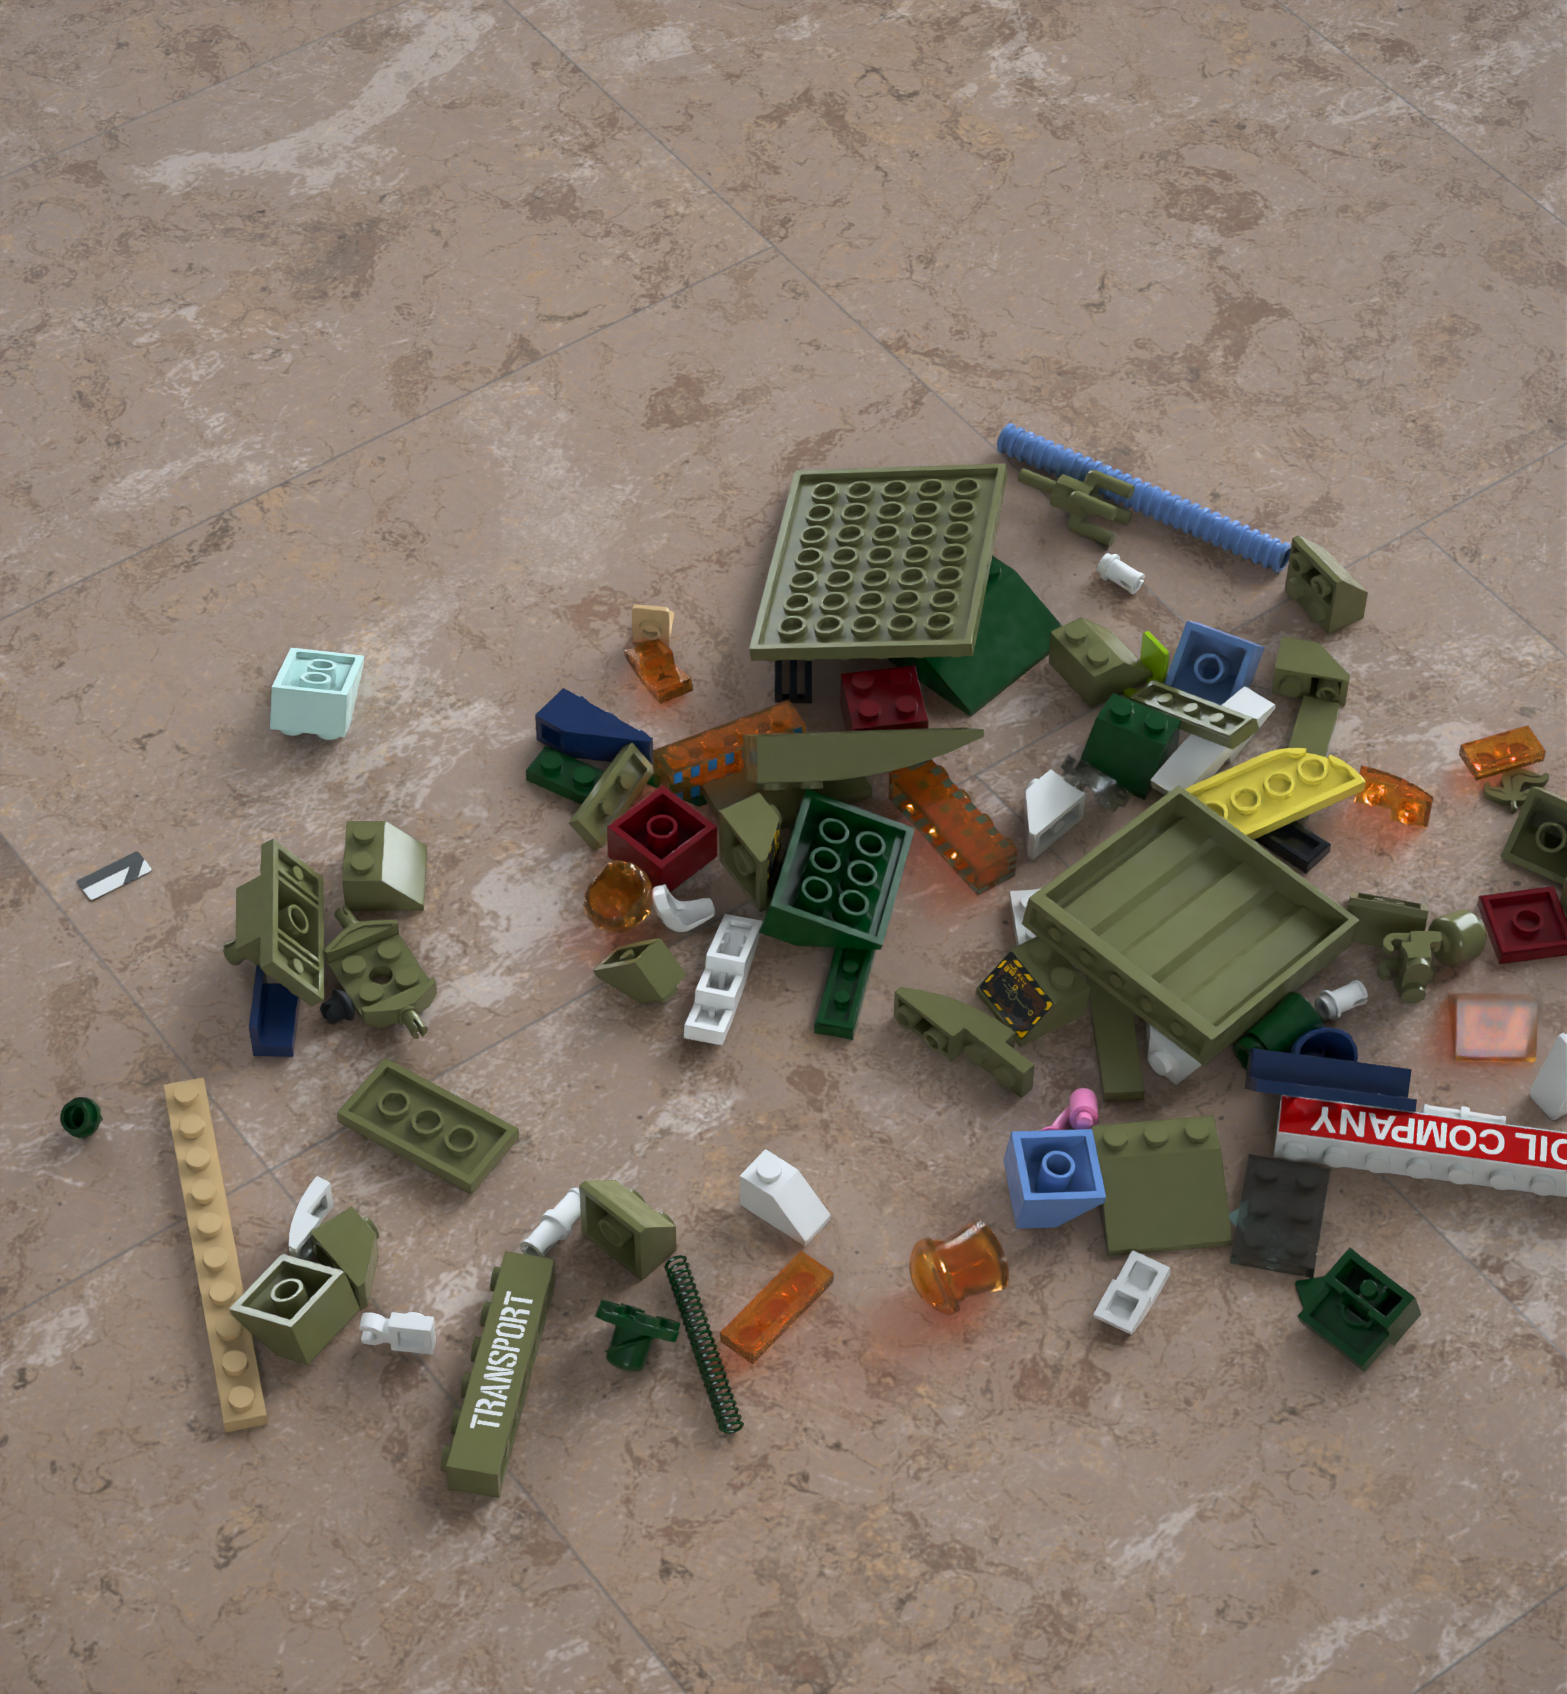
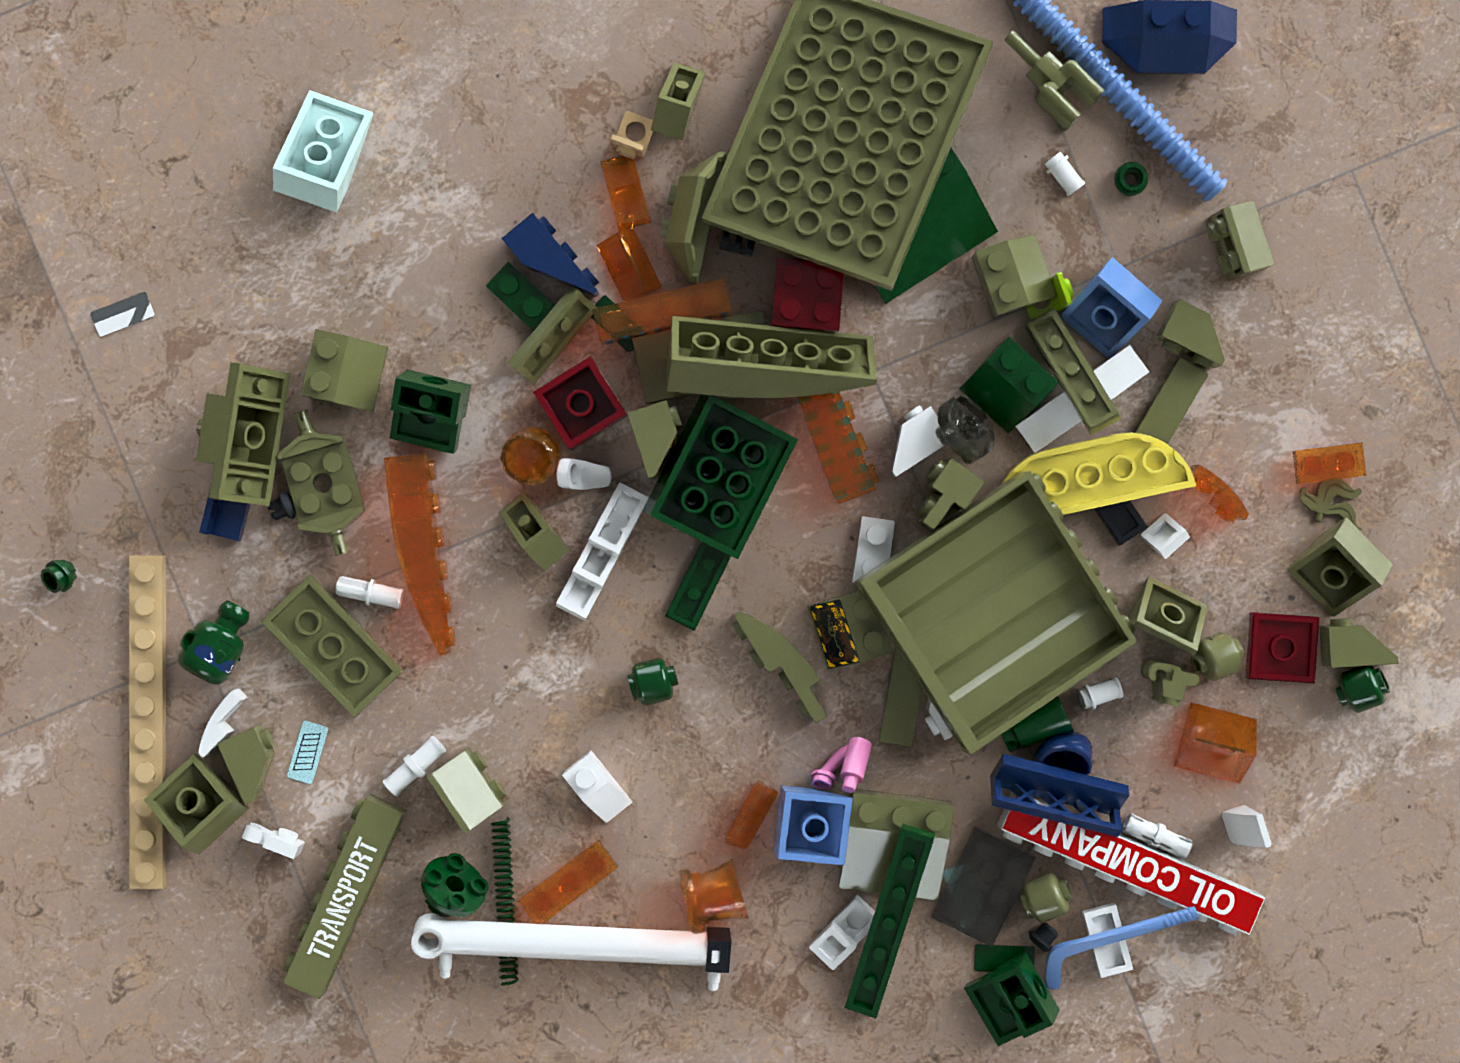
camera: 15 degrees right, 40 degrees up
(285, 1145) = (213, 646): none -> dark green piece
(418, 1246) = (307, 752): none -> clear light blue sticker
(460, 1067) = (370, 592): none -> white axle
(490, 880) = (428, 410): none -> dark green brick
(509, 1006) = (418, 542): none -> clear orange slope
(669, 721) = (629, 265): none -> clear orange slope
(692, 587) = (677, 101): none -> olive slope
(736, 676) = (685, 230): none -> olive wedge
(819, 1085) = (652, 681): none -> dark green head
(967, 1333) = (572, 943): none -> white piece
(978, 1189) = (751, 815): none -> clear orange slope
(1097, 818) = (953, 487): none -> olive brick
(1180, 1250) = (889, 920): none -> dark green plate
(1183, 447) = (1169, 34): none -> dark blue wedge
(1191, 565) = (1140, 174): none -> dark green plate
(1353, 844) = (1165, 535): none -> white plate
(1358, 1202) = (1046, 897): none -> olive head
(1373, 1248) = (1043, 936): none -> black piece
(1396, 1251) = (1065, 949): none -> medium blue piece
(1449, 1234) = (1112, 957): none -> white plate

